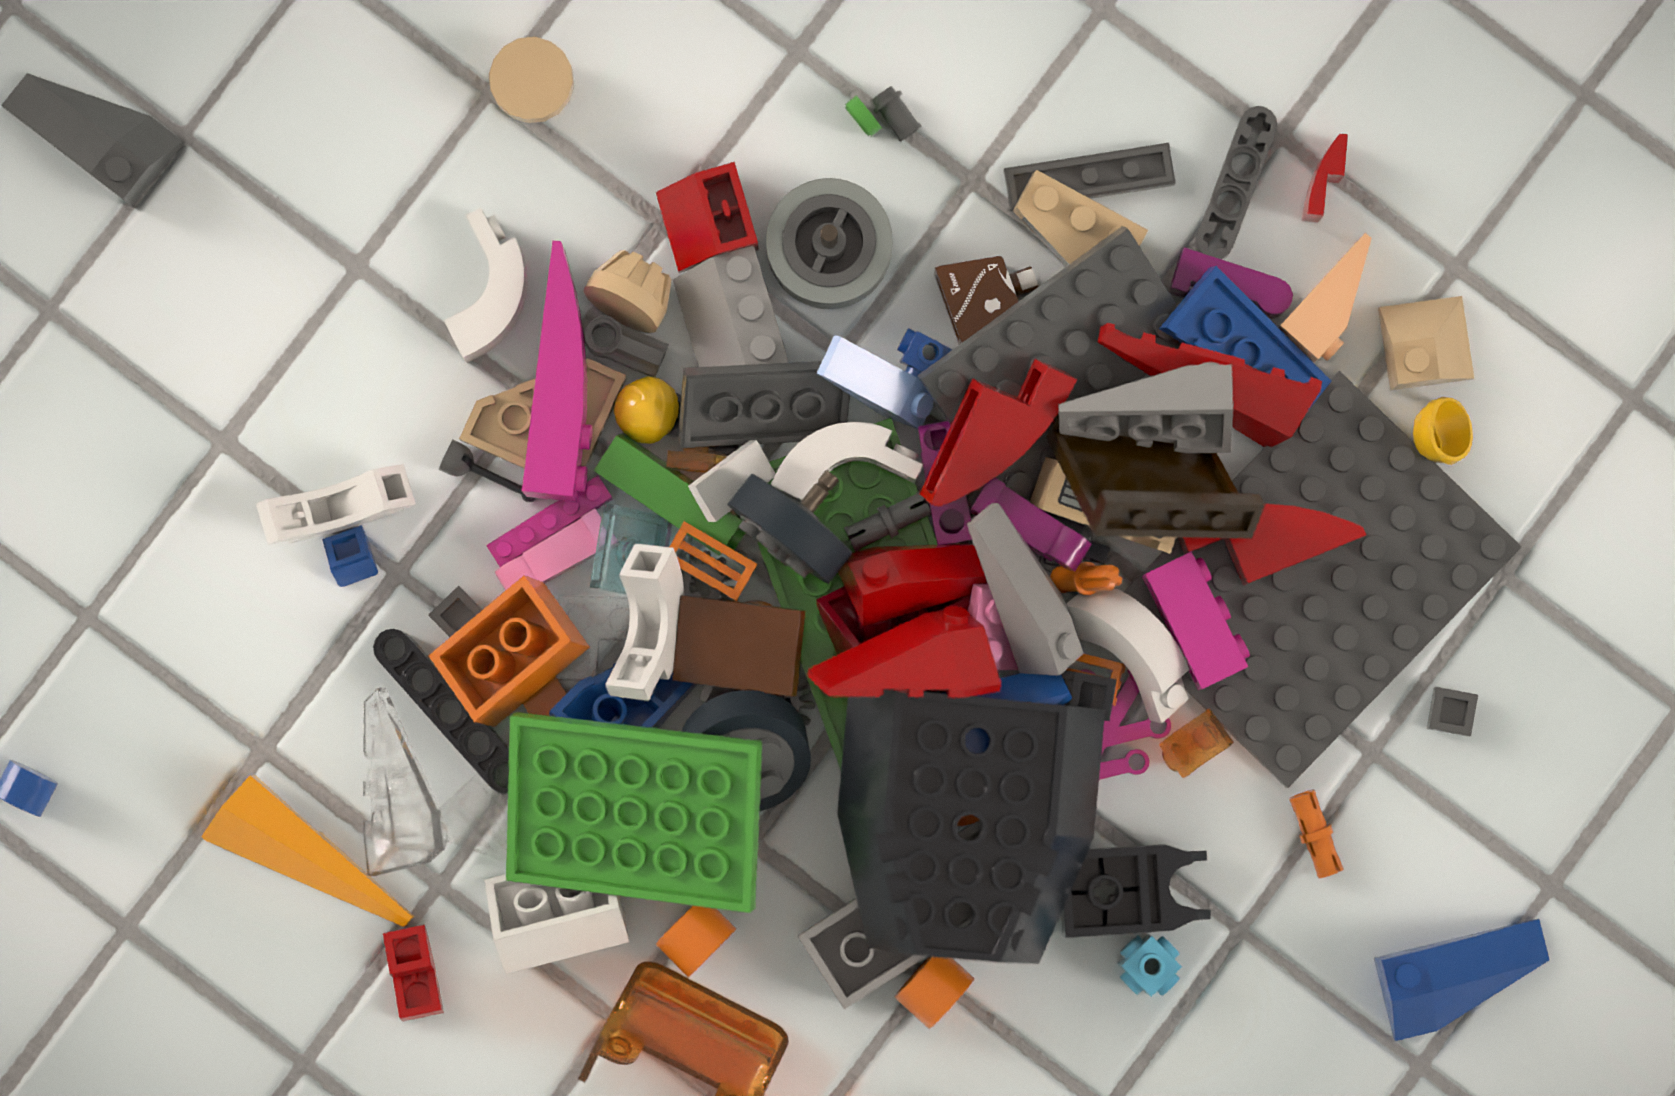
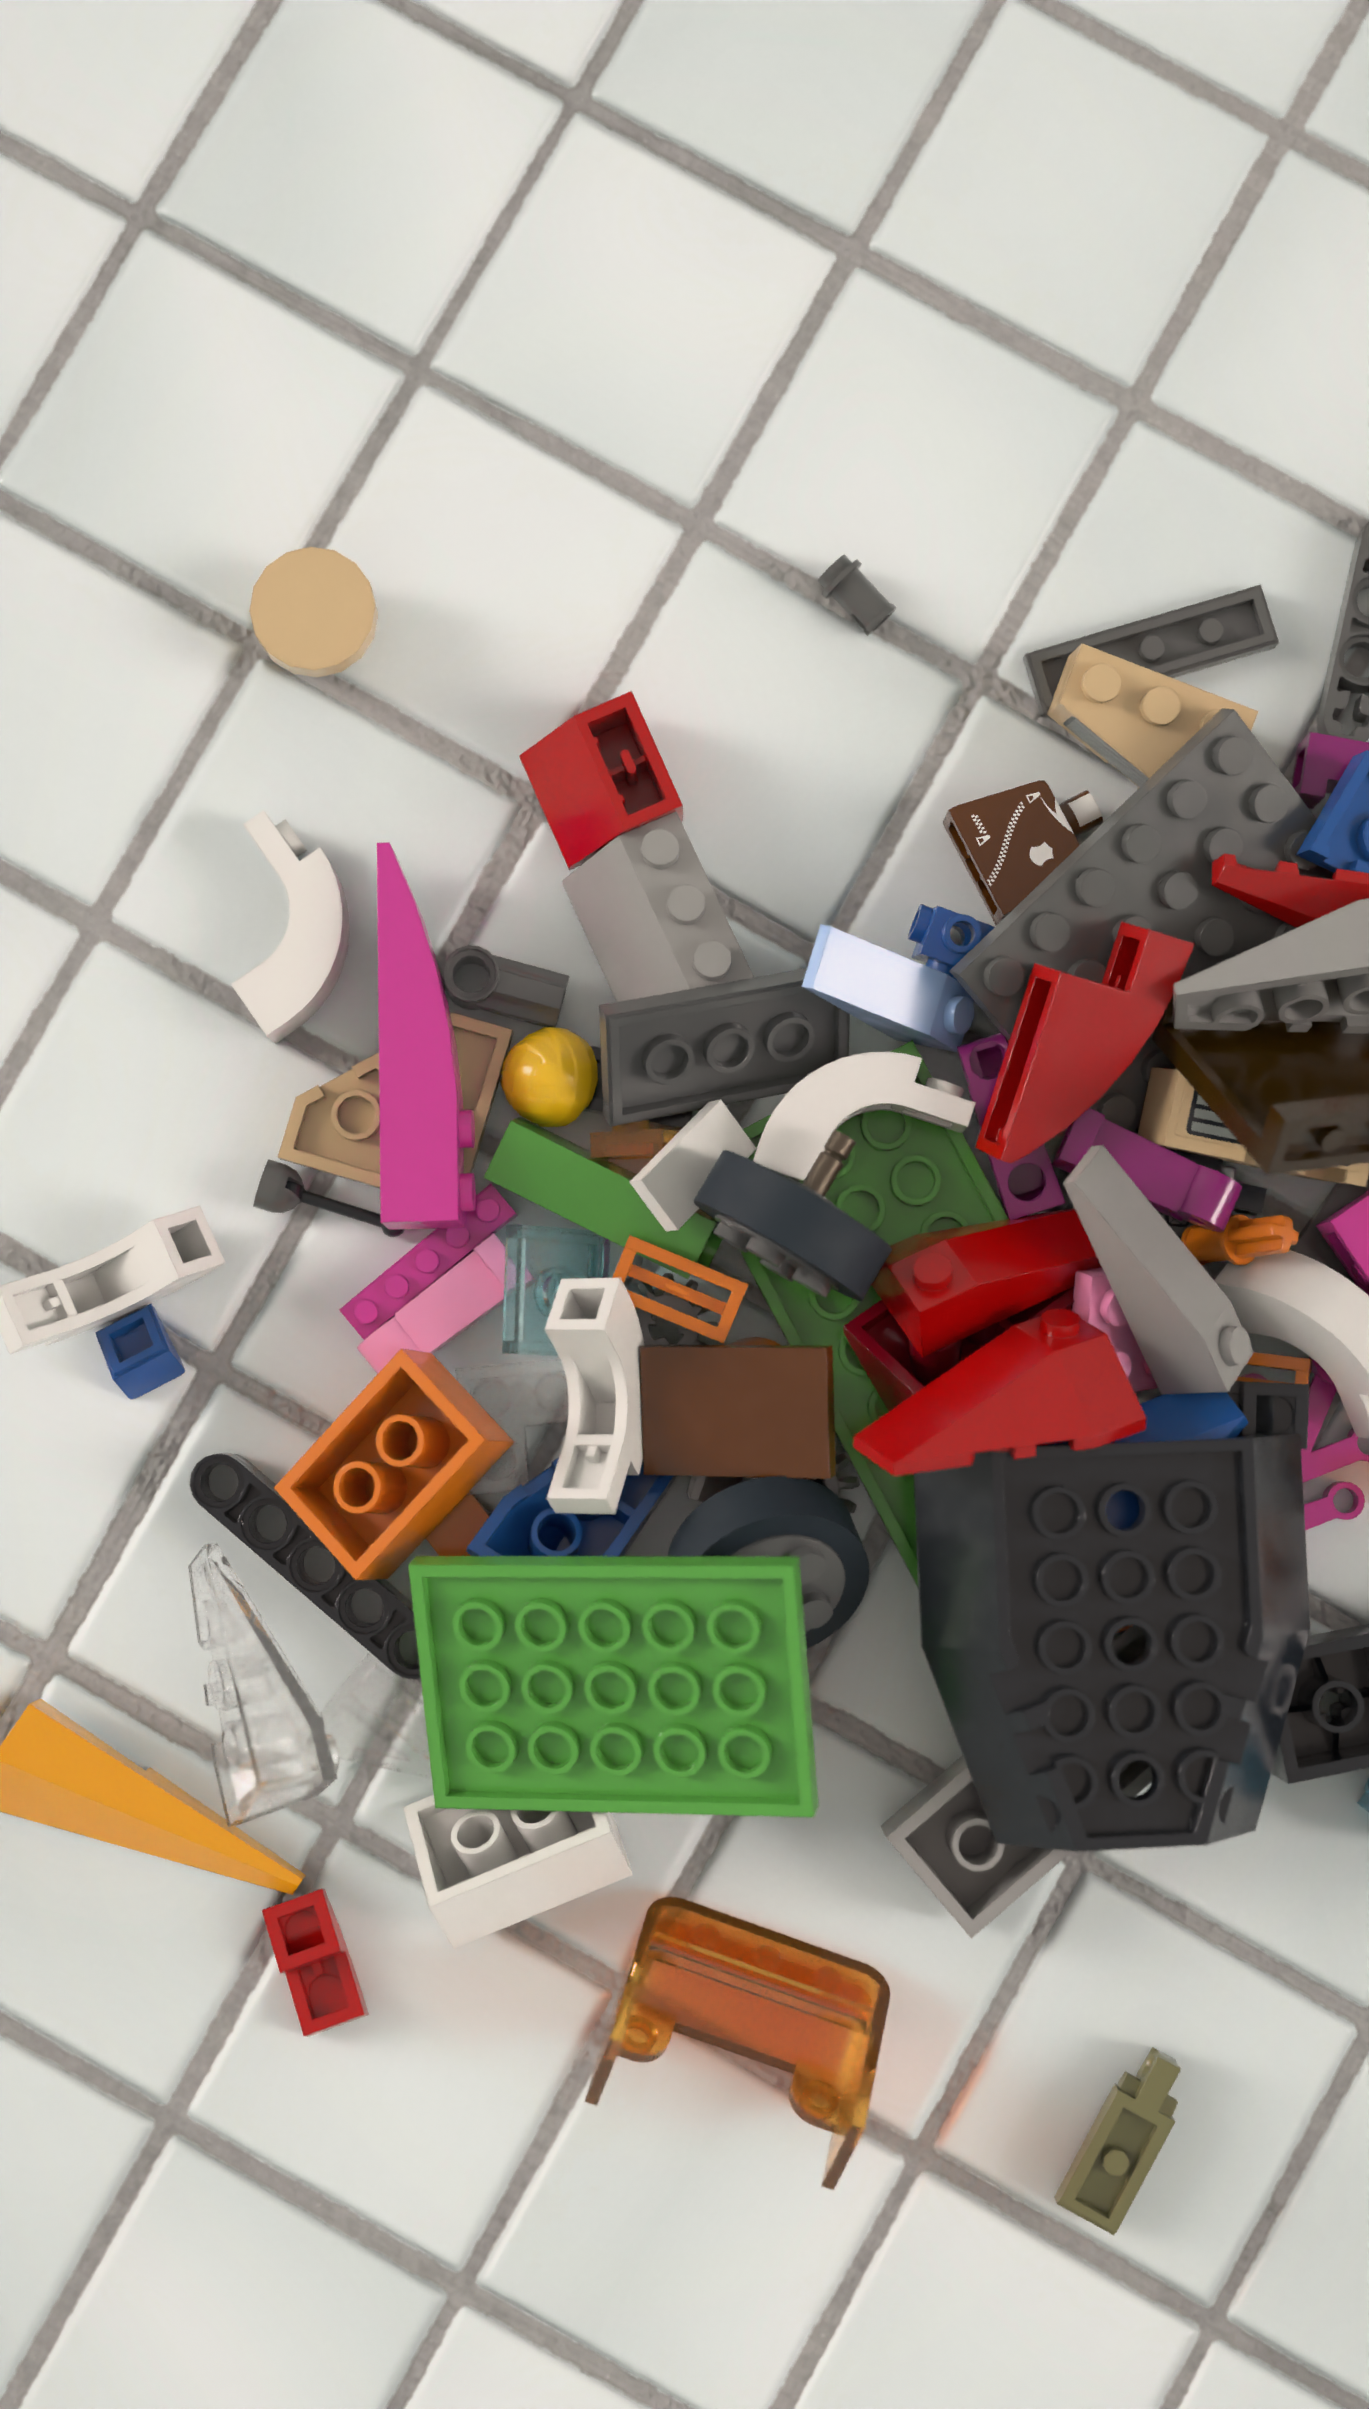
camera: 10 degrees left, 0 degrees up
(454, 611) = (306, 1414): dark grey plate -> none
(630, 291) = (502, 904): tan piece -> none
(695, 937) = (730, 1859): orange piece -> none
(829, 243) = (786, 795): wheel -> none
(862, 116) = (808, 604): bright green tile -> none
(887, 521) = (931, 1194): dark grey pin -> none
(934, 989) = (1098, 1890): orange piece -> none

